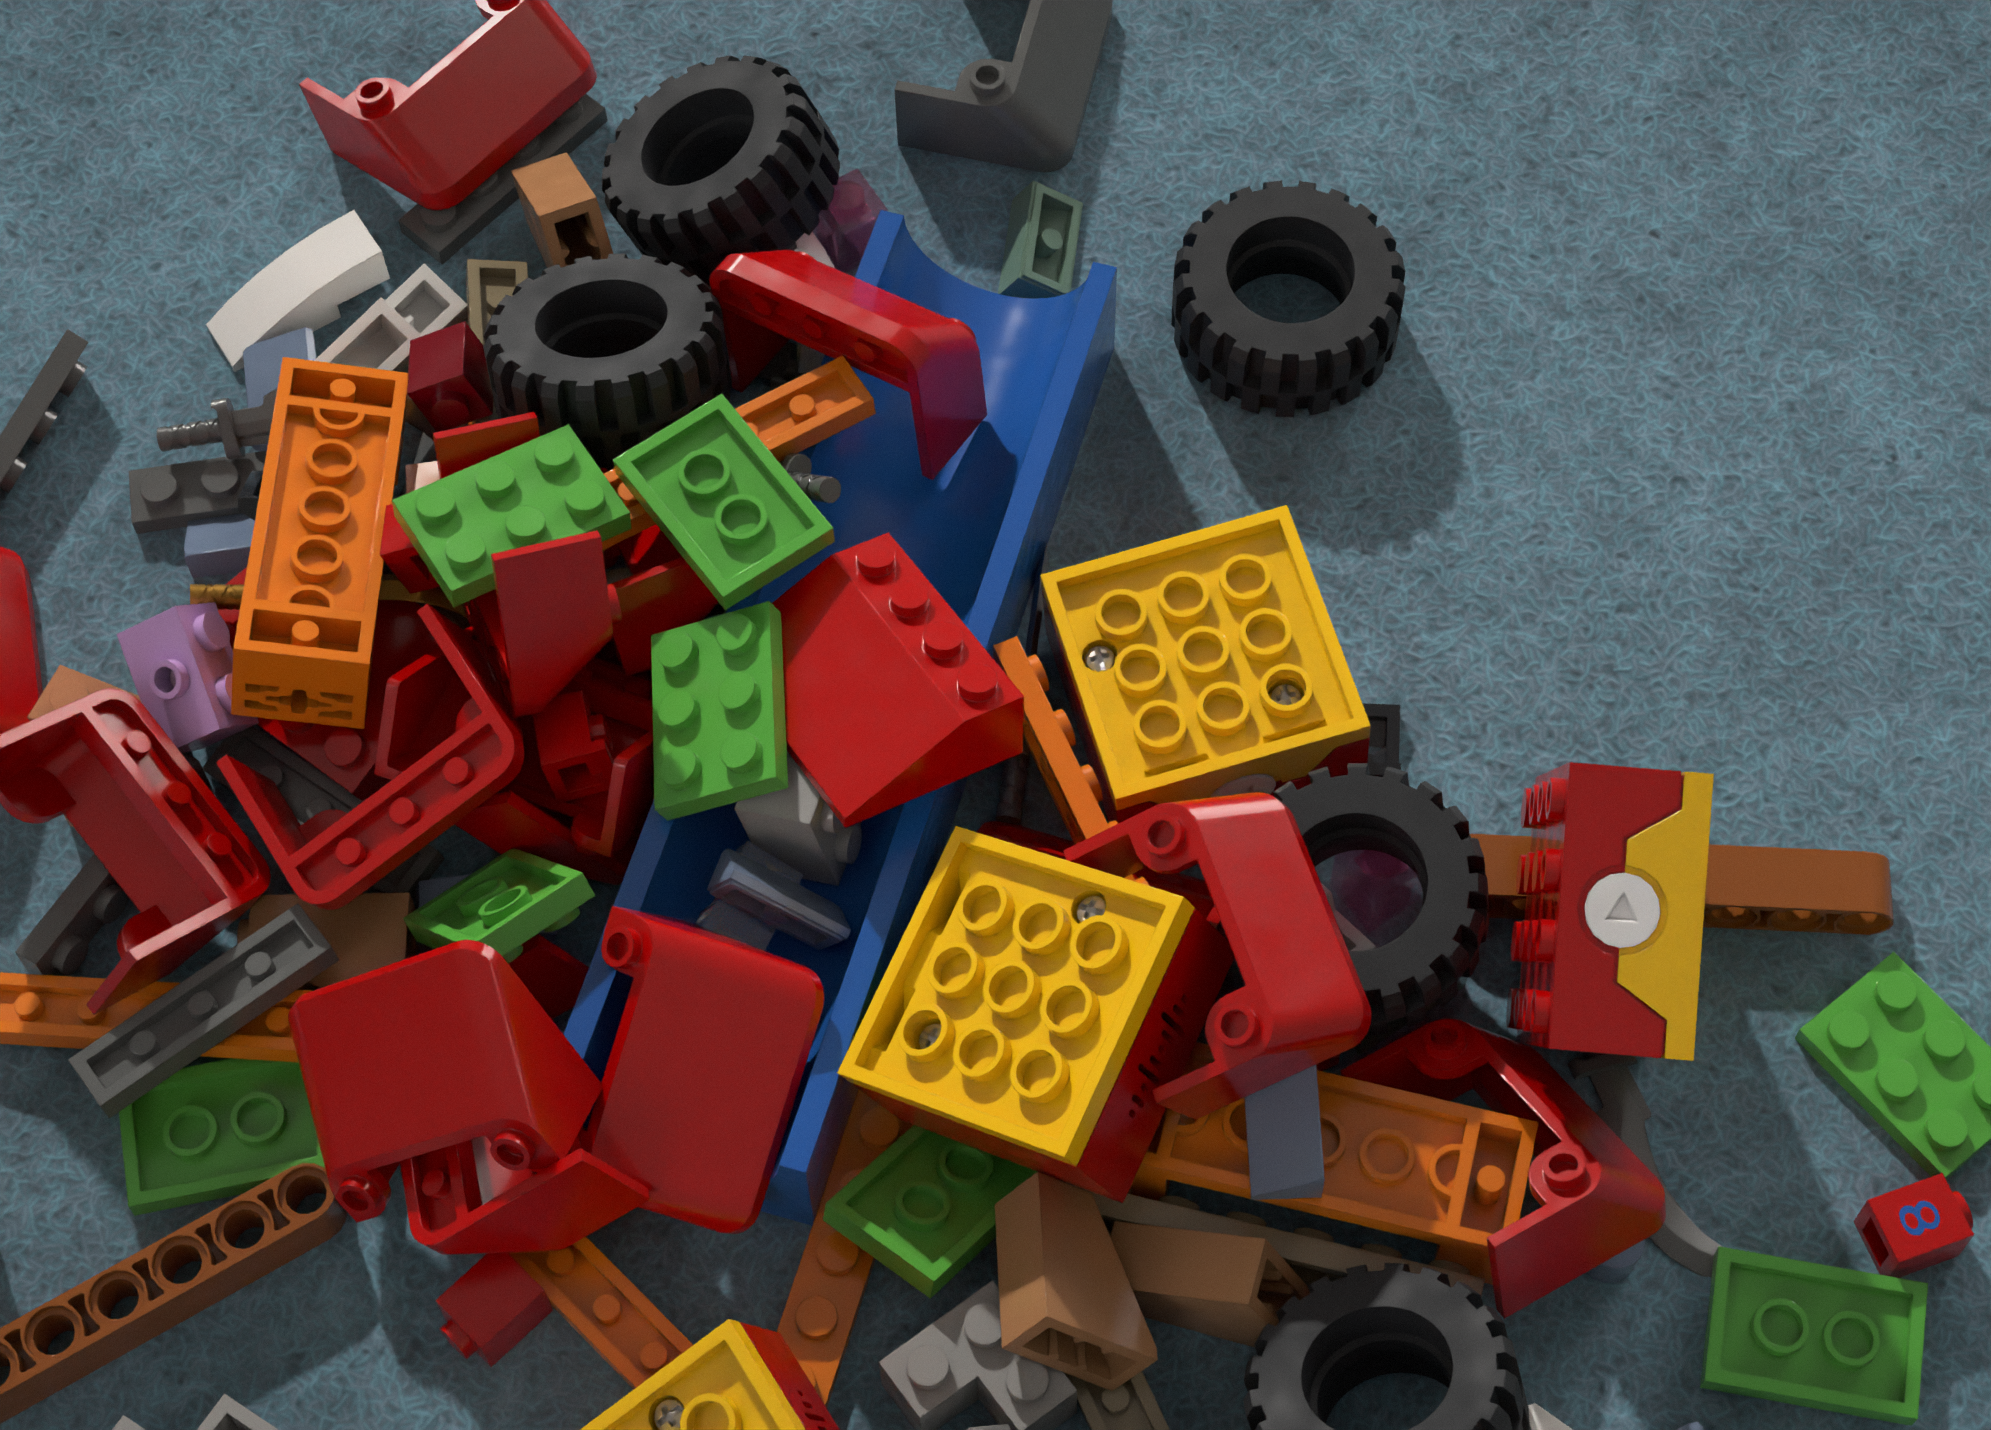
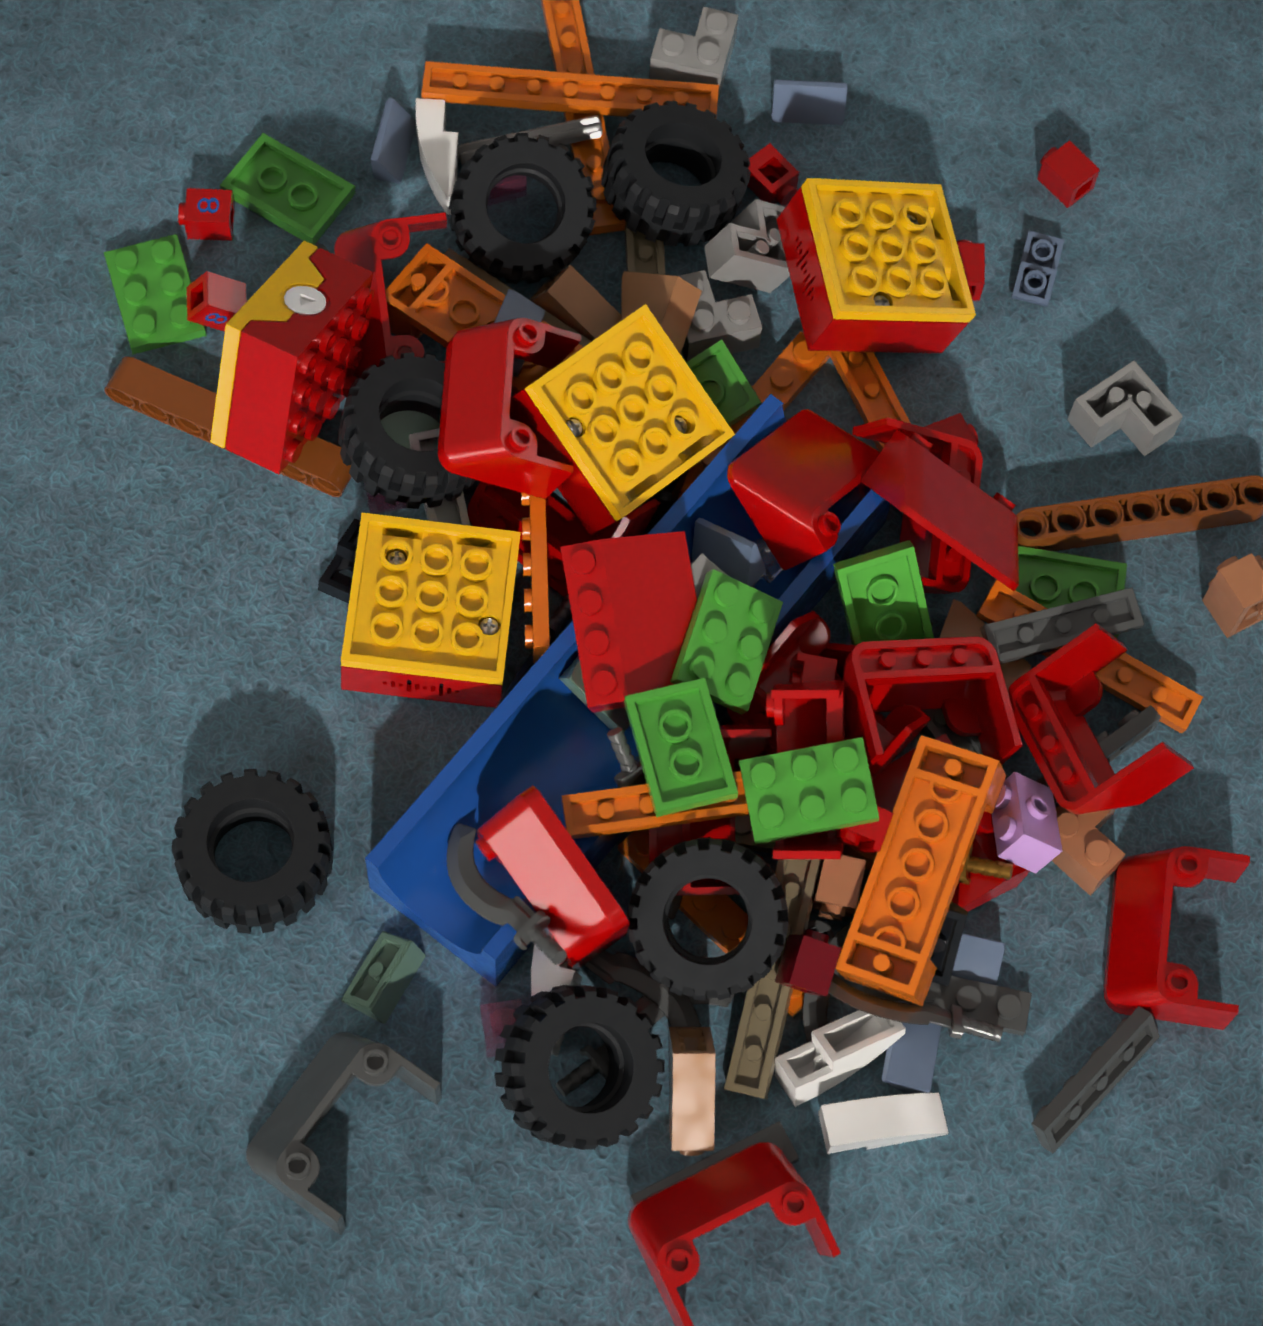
camera: 165 degrees left, 5 degrees up
(921, 281) = (492, 903): none -> dark grey sword
(1803, 1064) = (214, 300): none -> red brick

